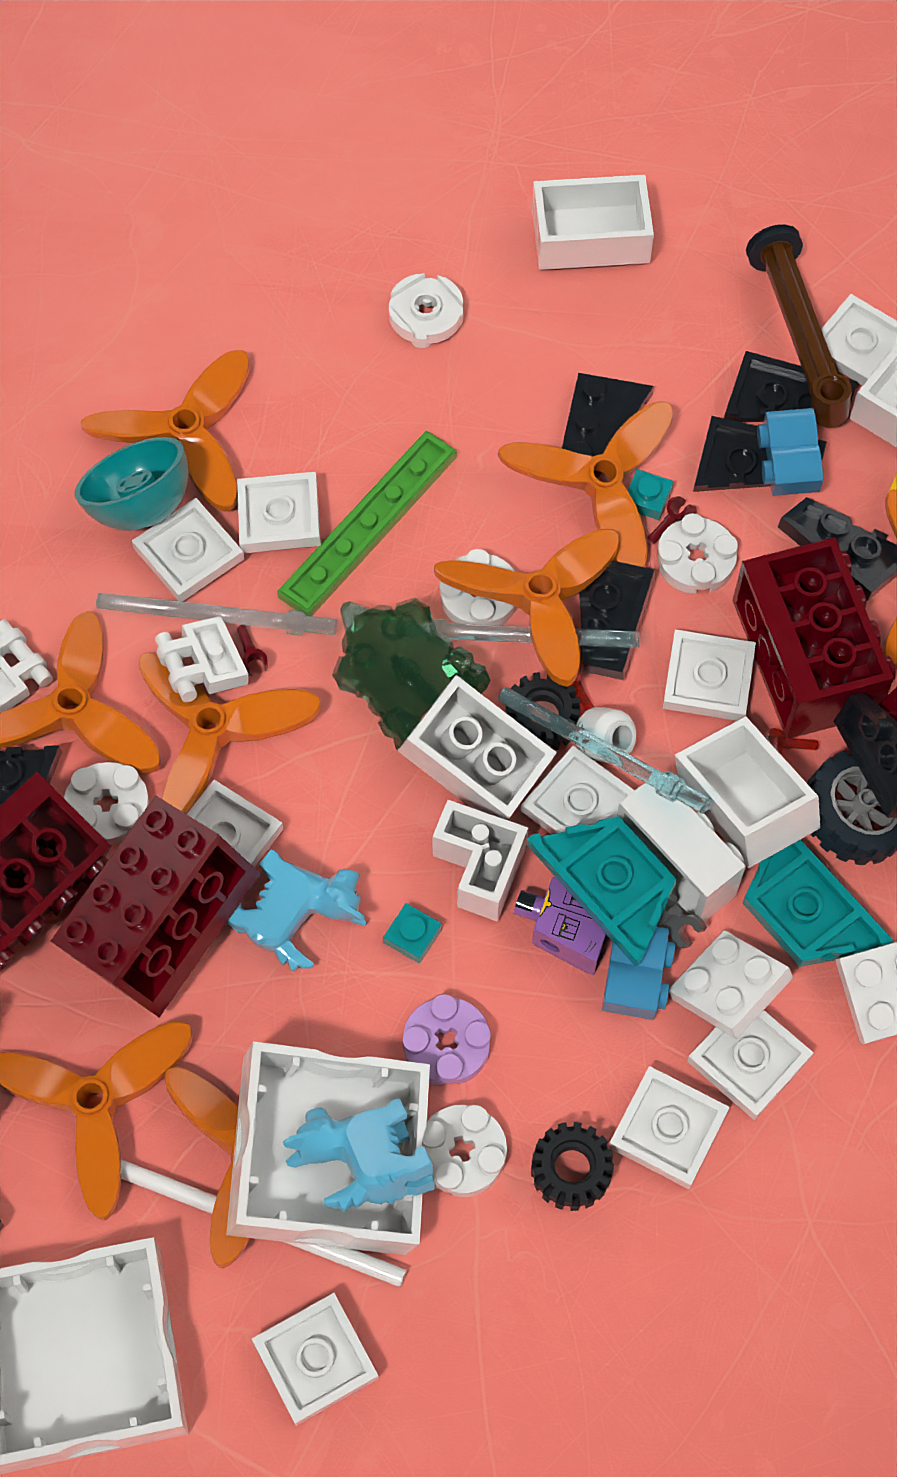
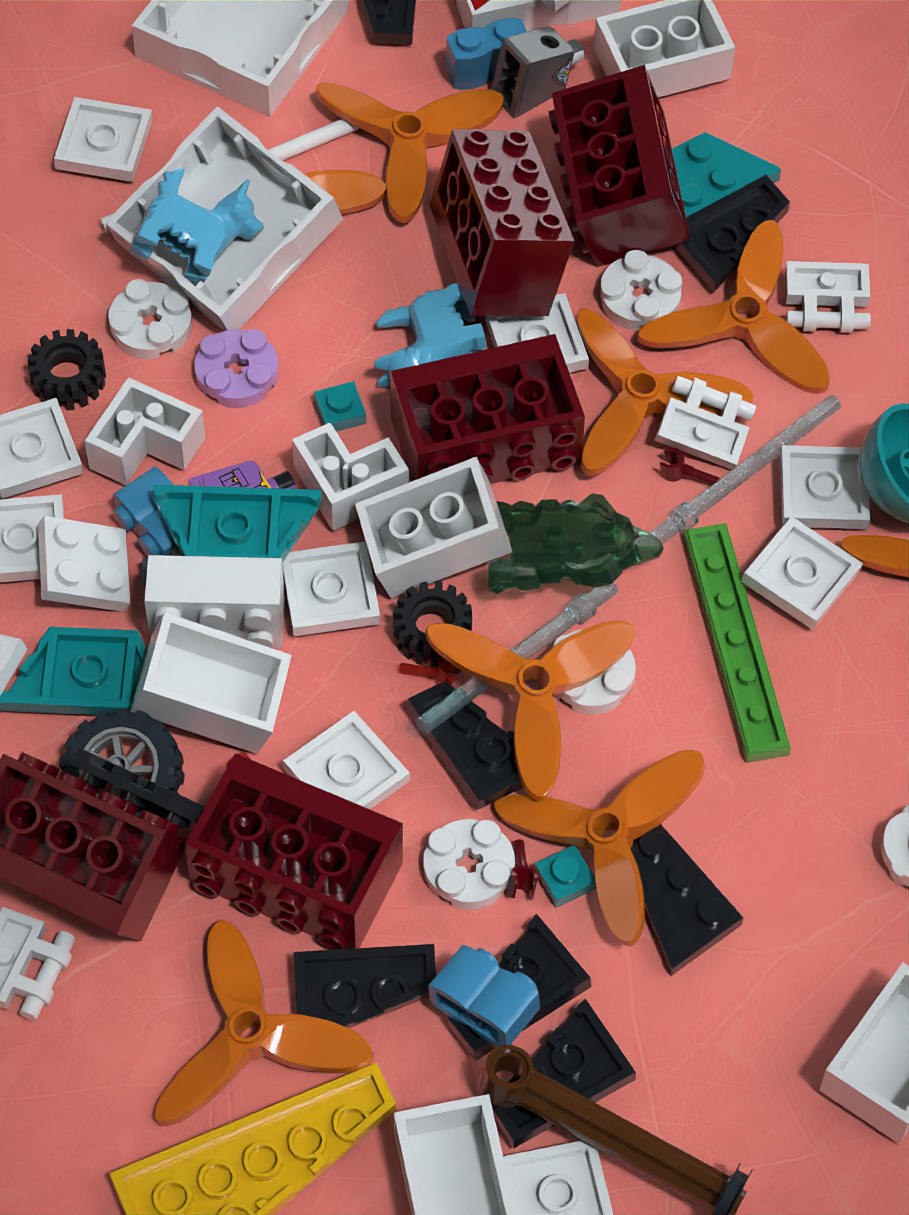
camera: 130 degrees right, 5 degrees down
(344, 793) = (494, 404): none -> dark red brick
(578, 1049) = (142, 424): none -> white brick
(610, 725) = (364, 640): white head -> none
(666, 784) = (256, 589): clear light blue bar -> none

